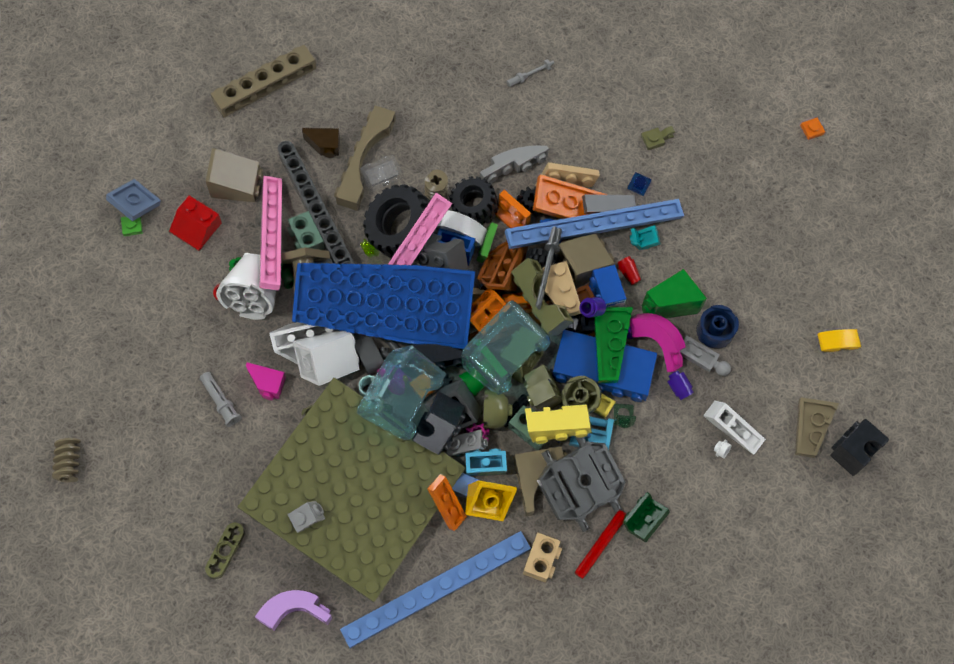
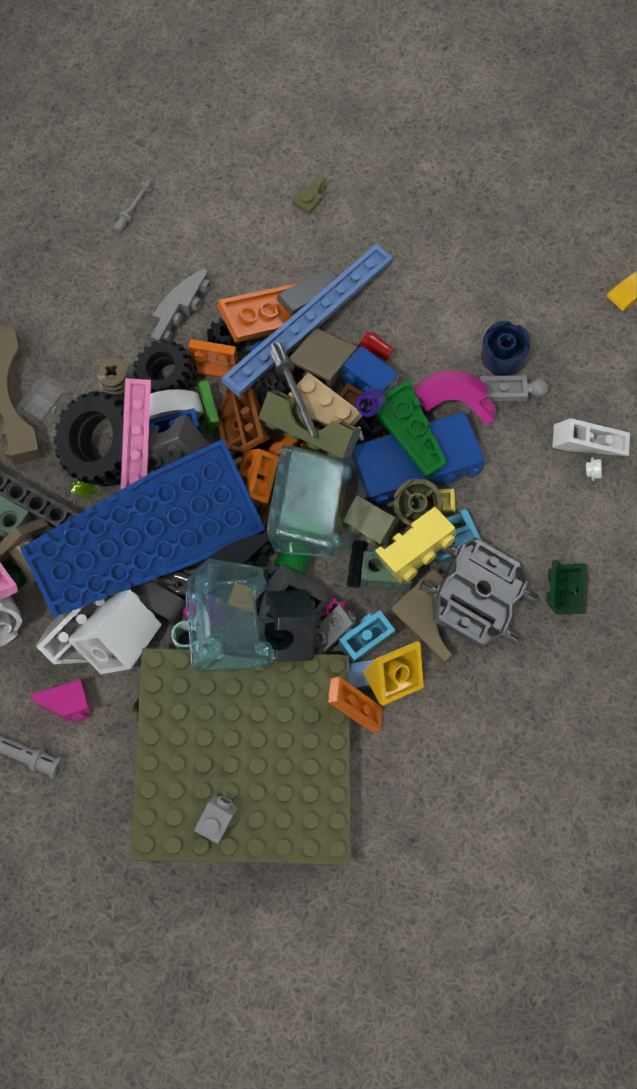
camera: 25 degrees left, 0 degrees up
(226, 534) = (153, 937): olive beam -> none
(286, 602) = (251, 930): lavender arch -> none
(435, 589) = (401, 809): medium blue plate -> none
(496, 410) = (339, 574): olive cylinder -> none
(537, 556) = (486, 699): tan brick -> none
(575, 175) = (252, 281): tan wing -> none
(600, 544) = (541, 670): red axle -> none
(623, 420) = (476, 503): clear green bracket -> none
(639, 184) = (324, 253): clear blue plate -> none
(645, 237) = (369, 303): teal bracket -> none
(674, 297) = (443, 343): green slope -> none
(680, 385) = (508, 430): dark purple brick -> none
(812, 128) = (460, 97): orange plate -> none

